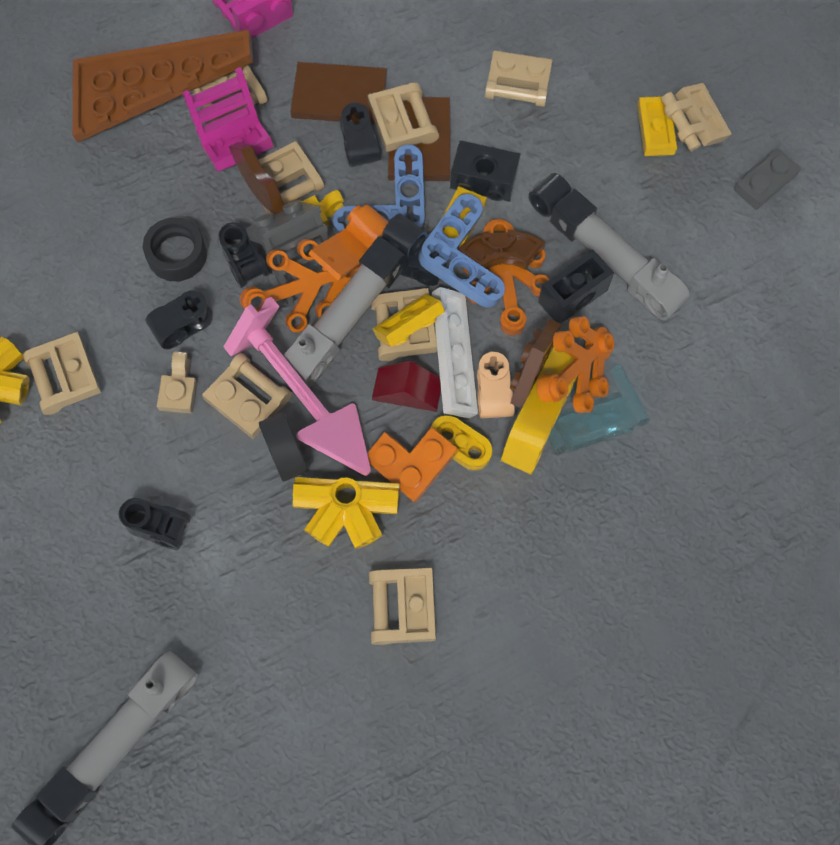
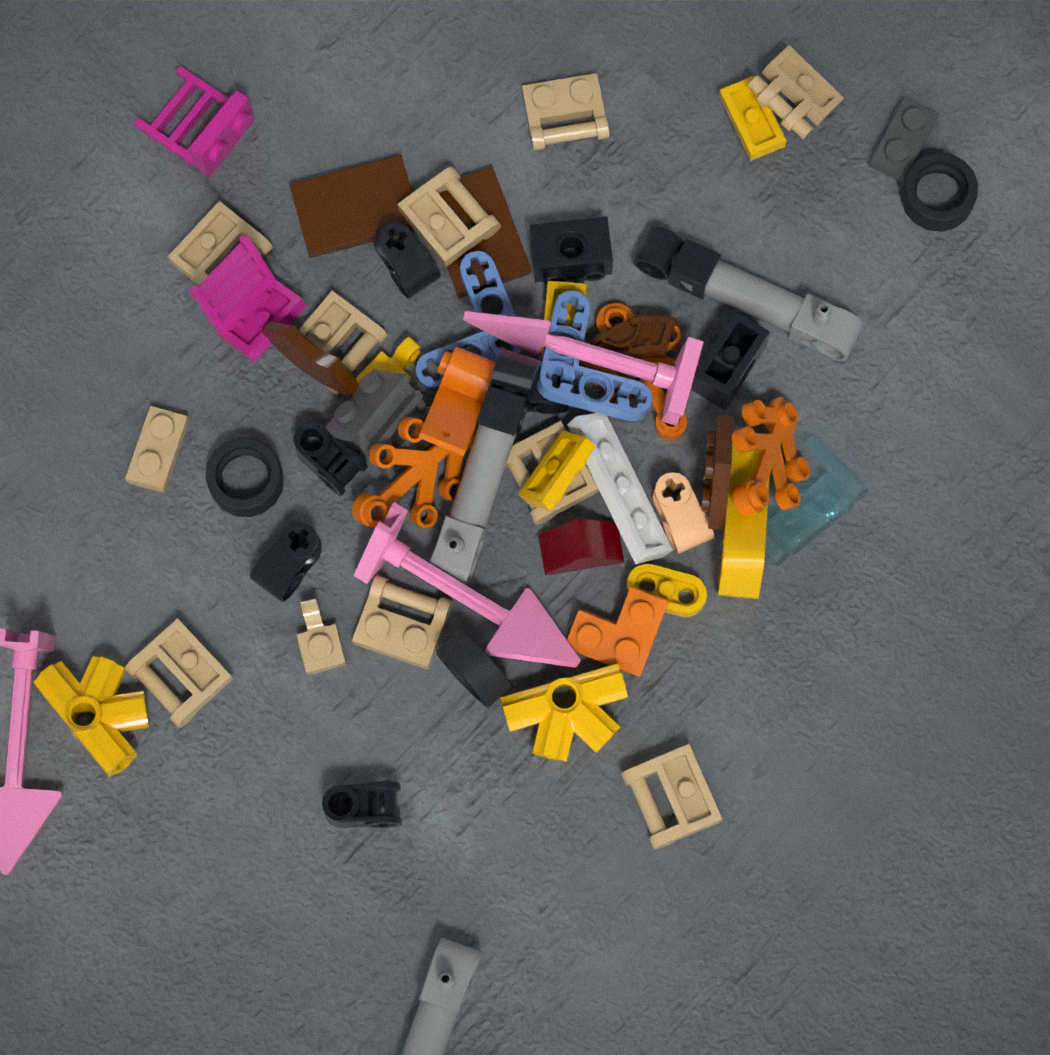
camera: 15 degrees left, 5 degrees up
(121, 210) = (157, 449): none -> tan plate
(135, 80) = (106, 280): dark orange wing -> none
(425, 213) = (533, 334): none -> bright pink piece
(789, 203) = (942, 164): none -> black tyre

